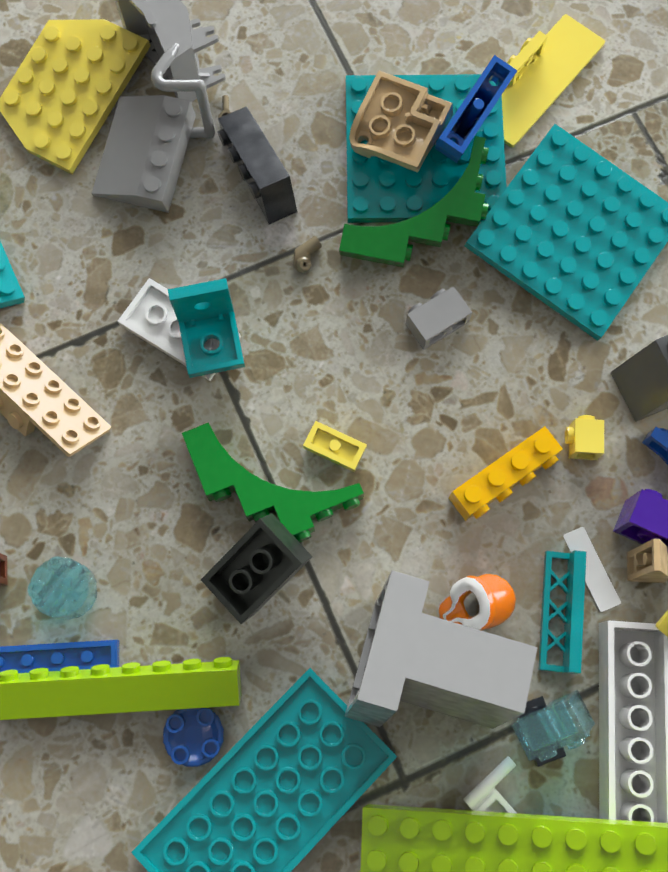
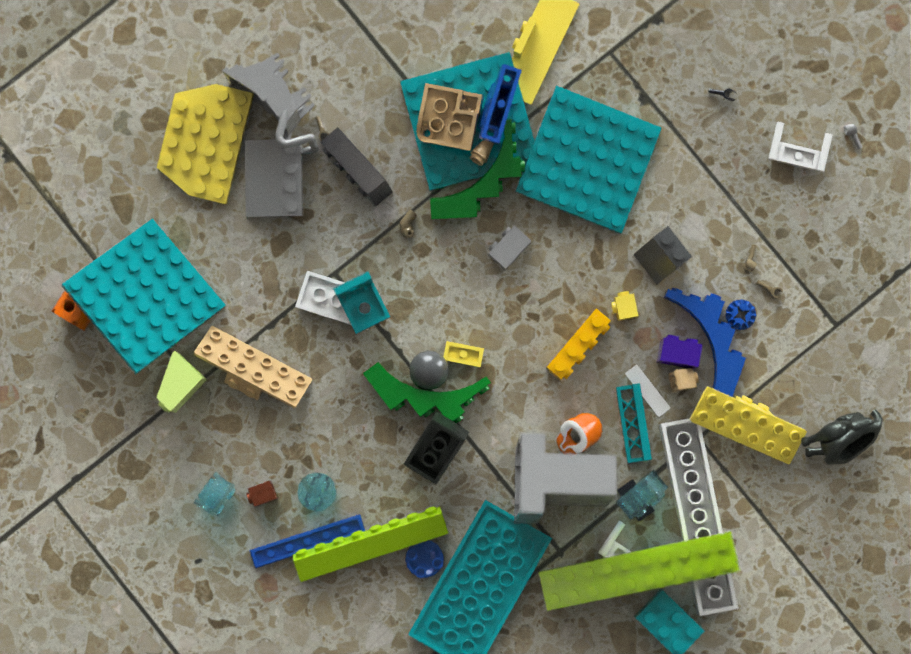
camera: 15 degrees left, 10 degrees up
(278, 454) = (428, 370): none -> dark grey piece
(431, 181) = (481, 152): none -> tan cone

